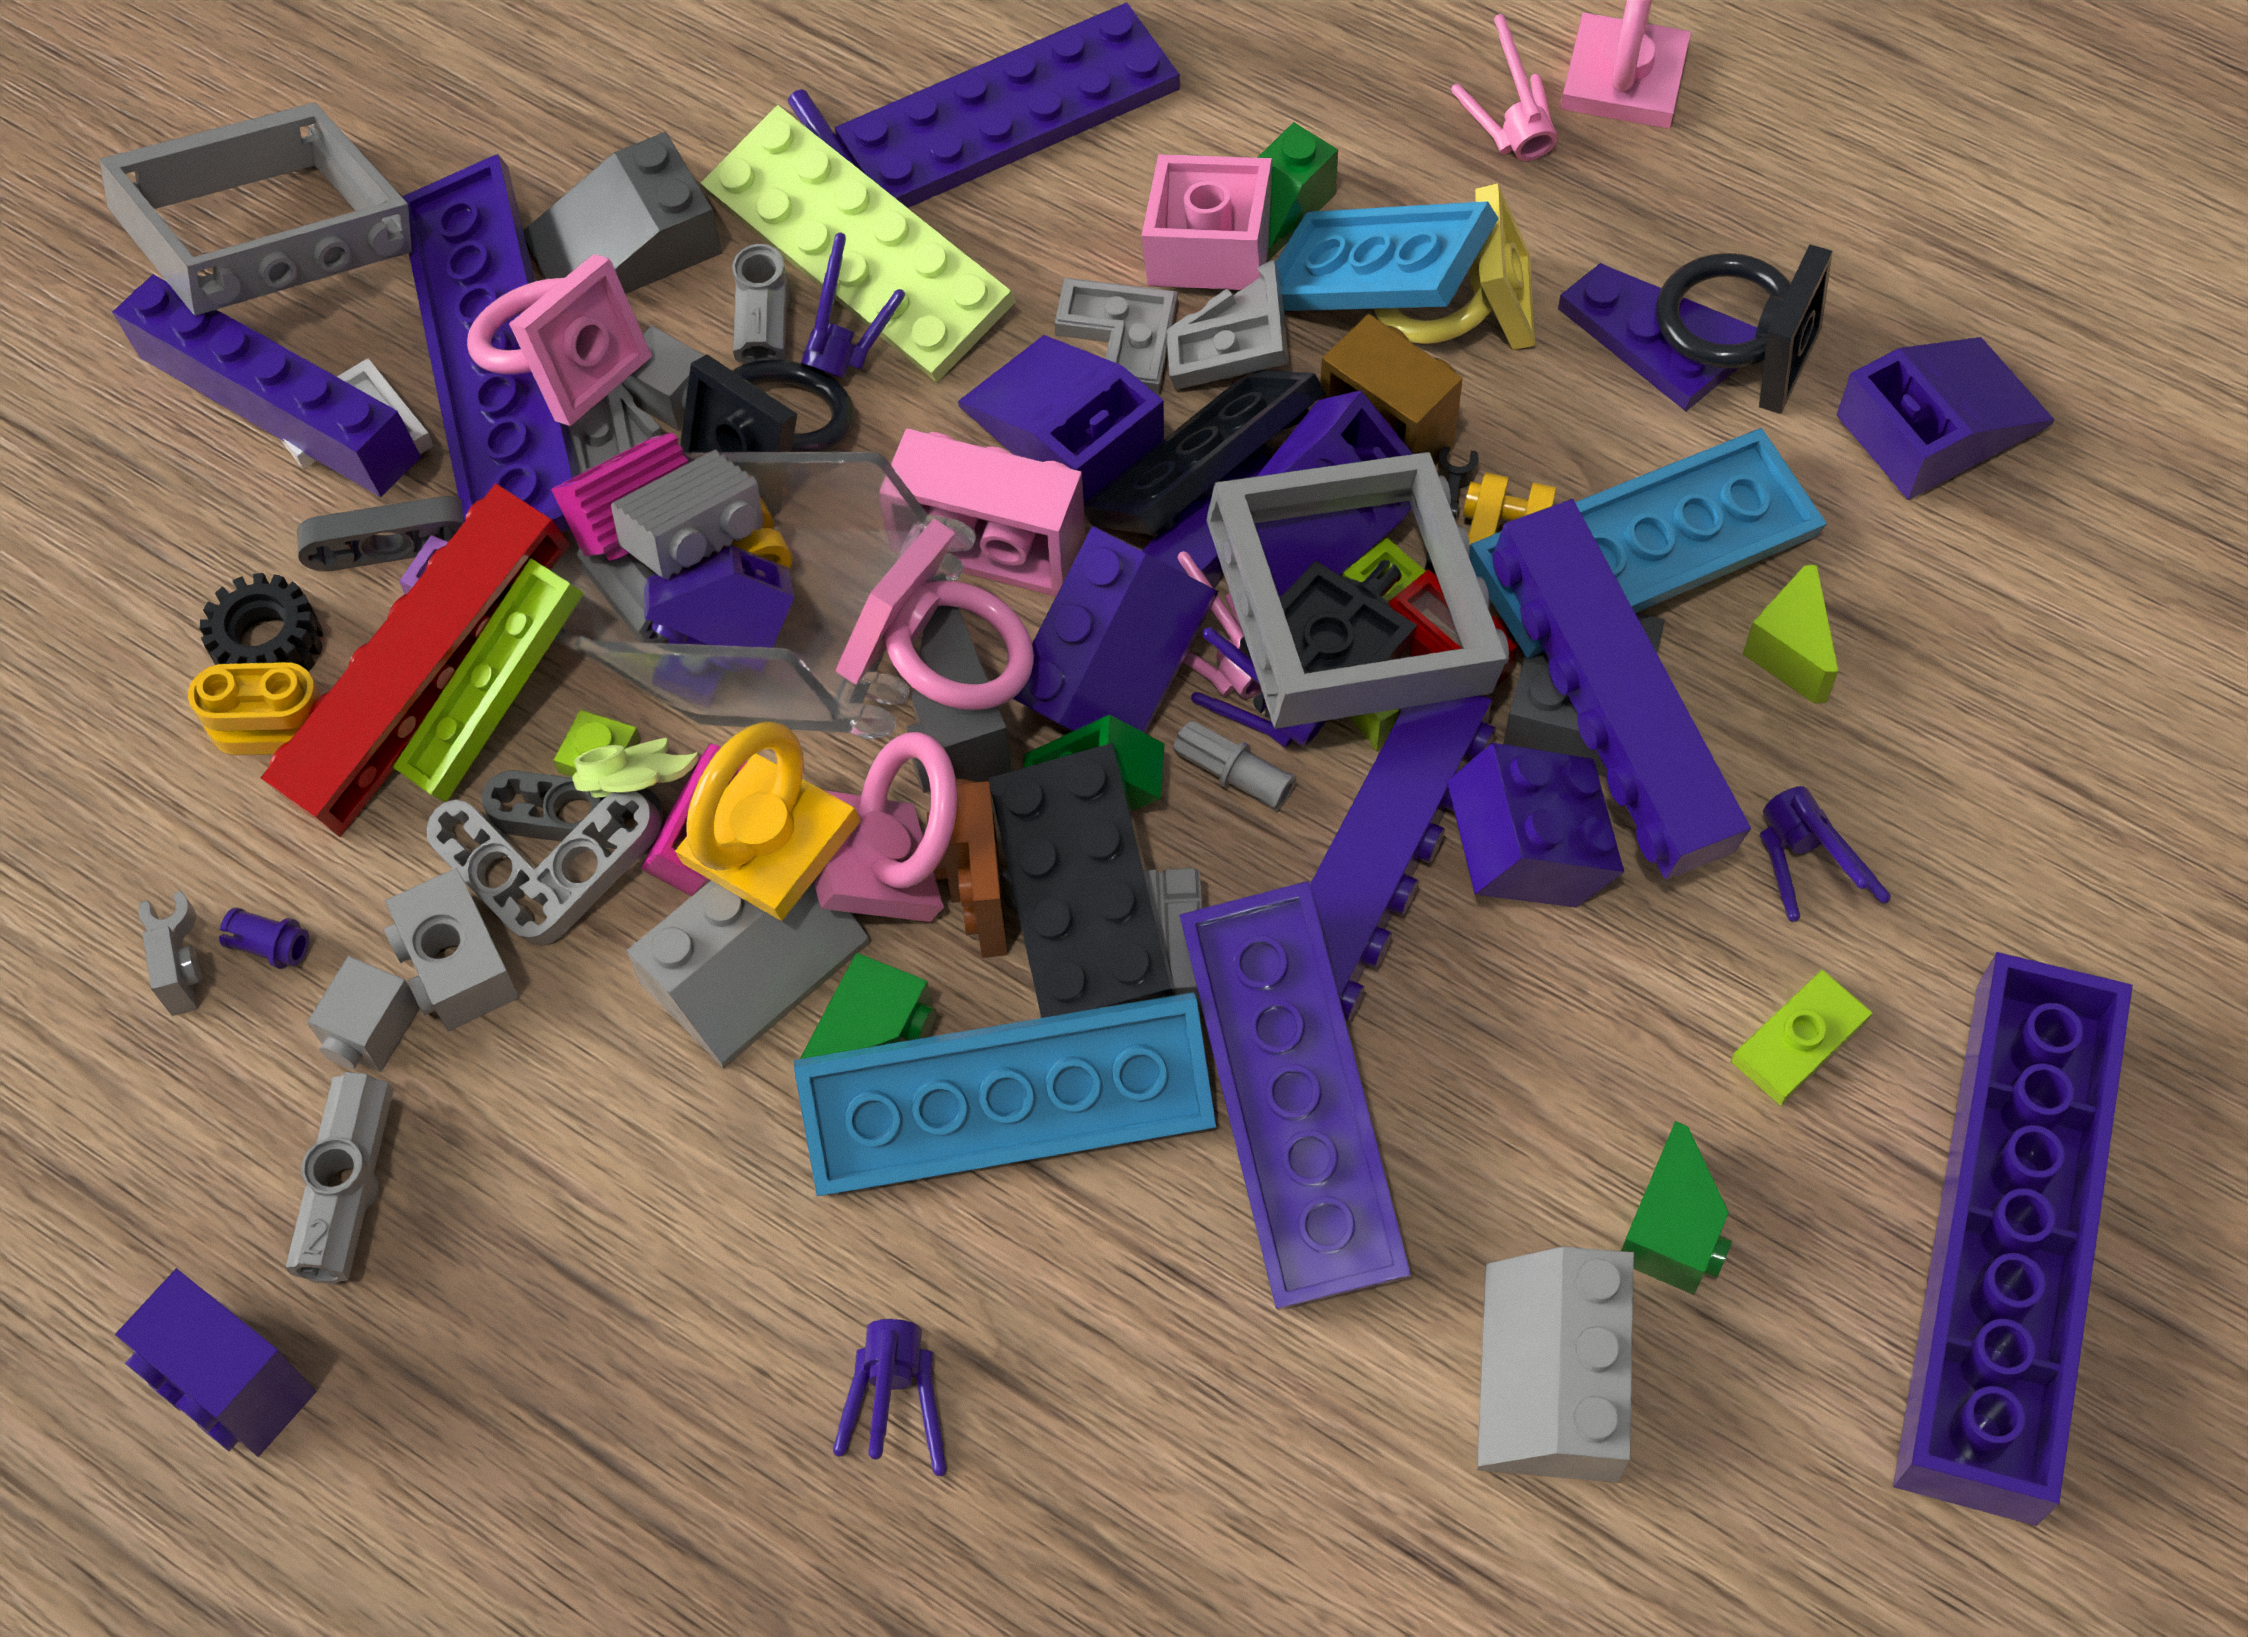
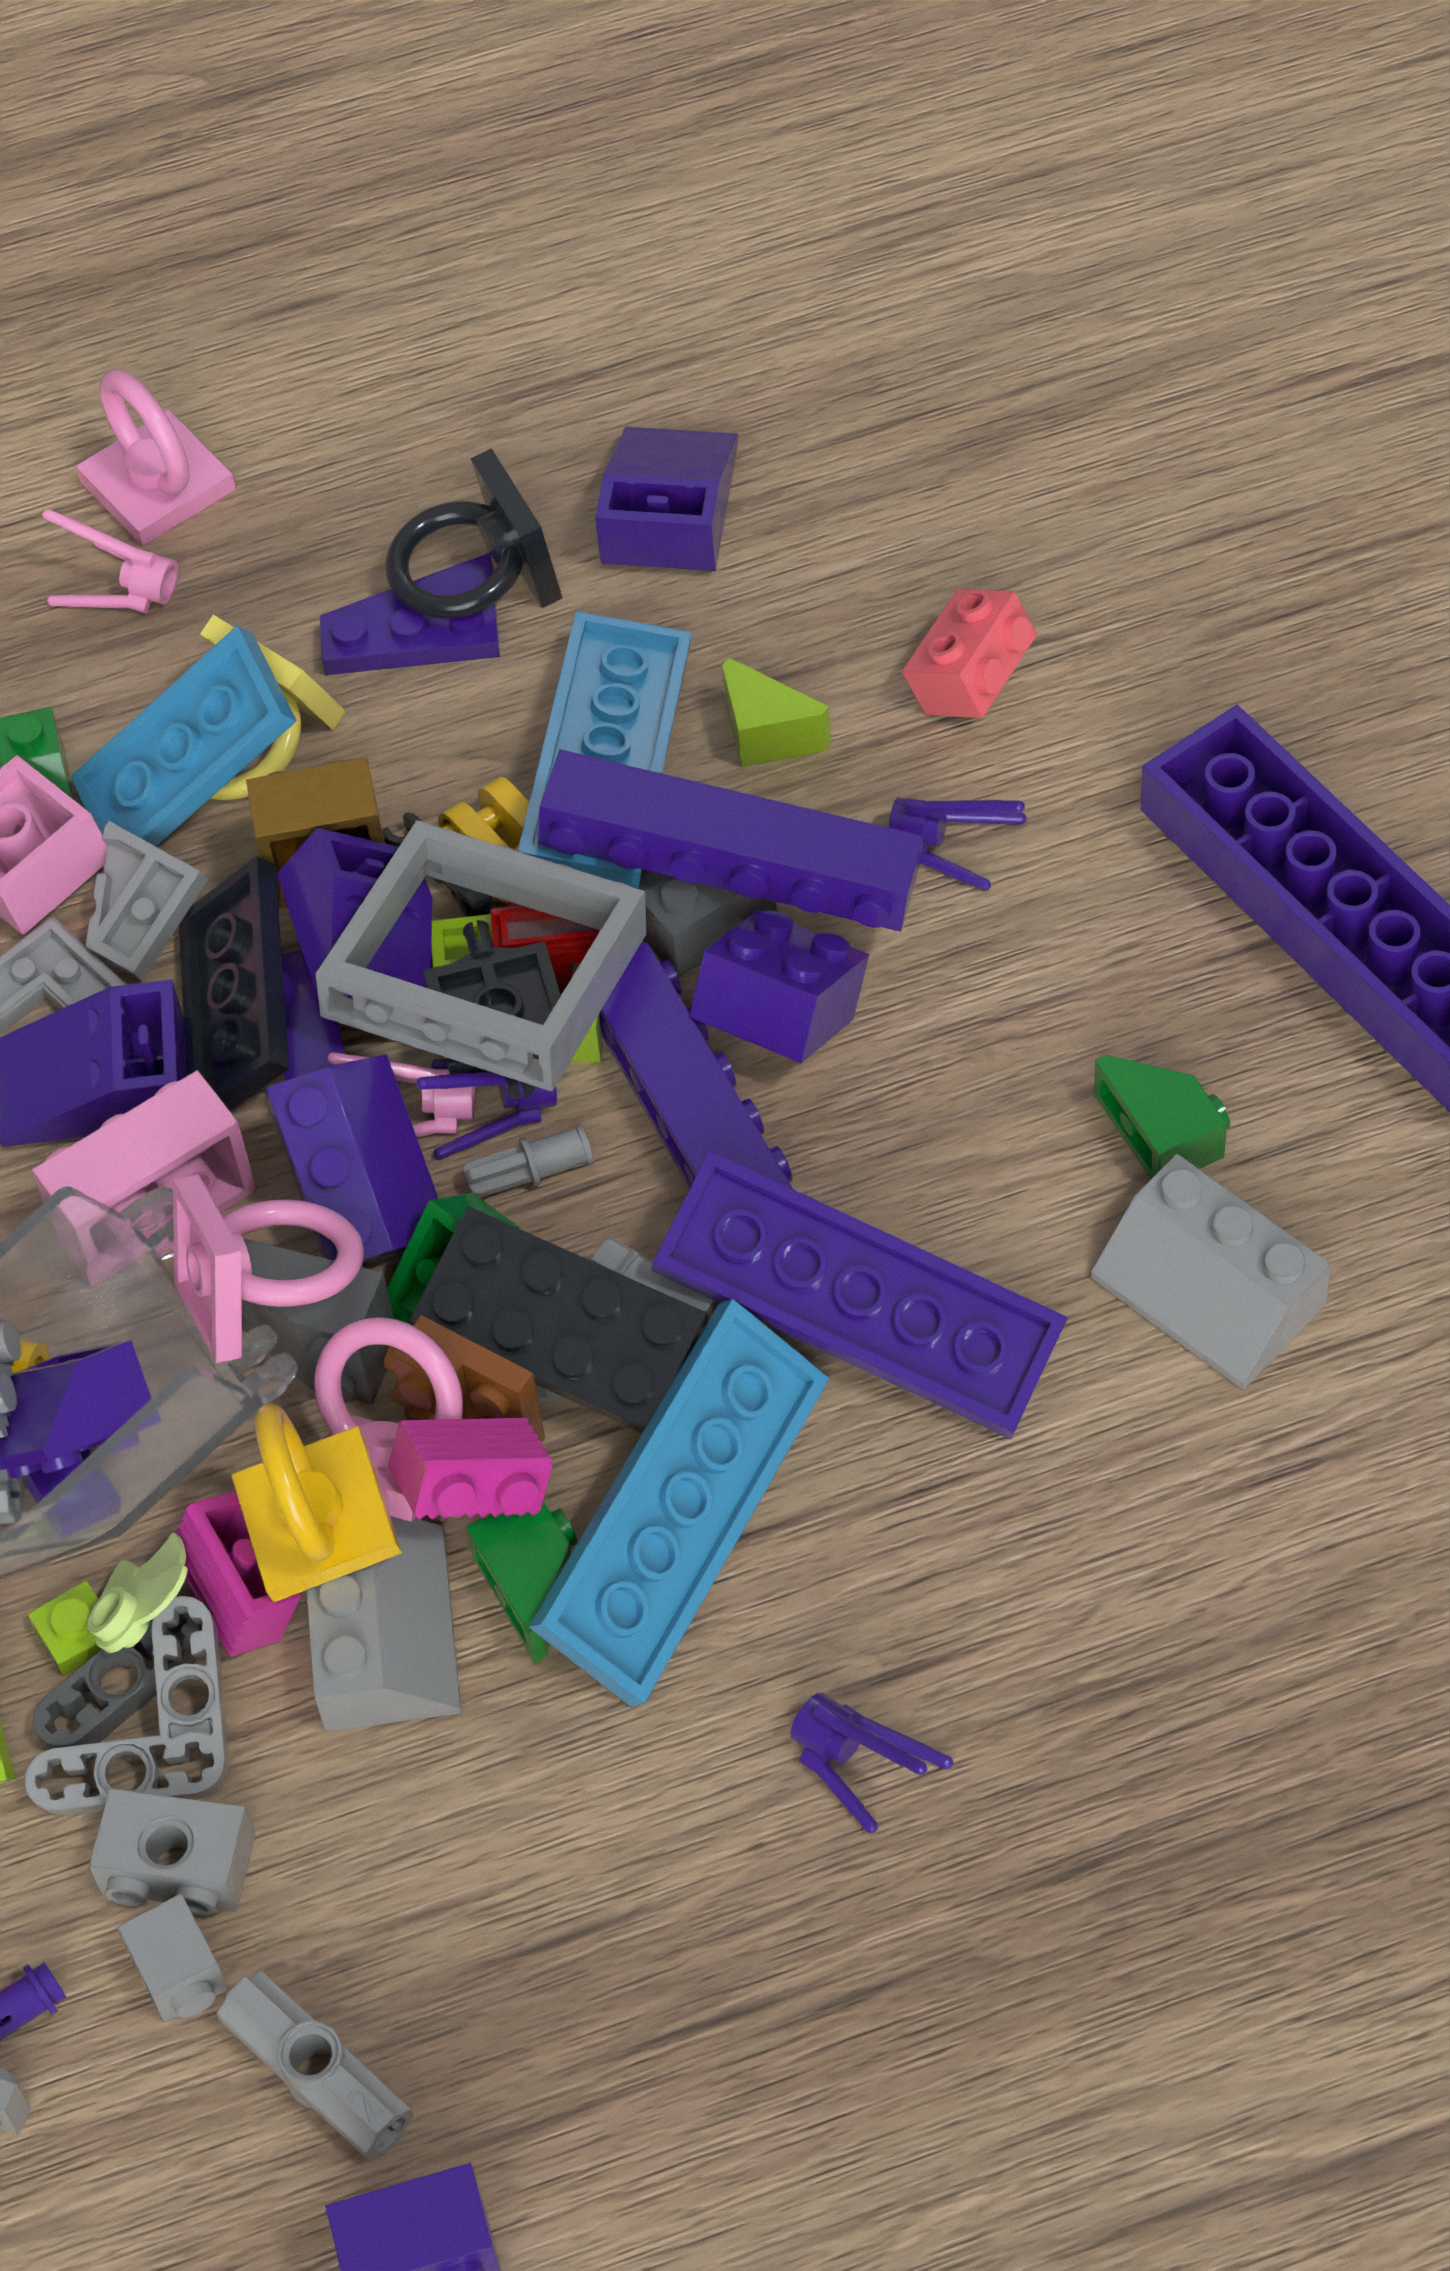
camera: 50 degrees left, 5 degrees down
(887, 915) = (470, 1467): none -> dark pink brick
(1801, 1037) = (1086, 946): lime plate -> none
(1999, 740) = (969, 653): none -> coral brick

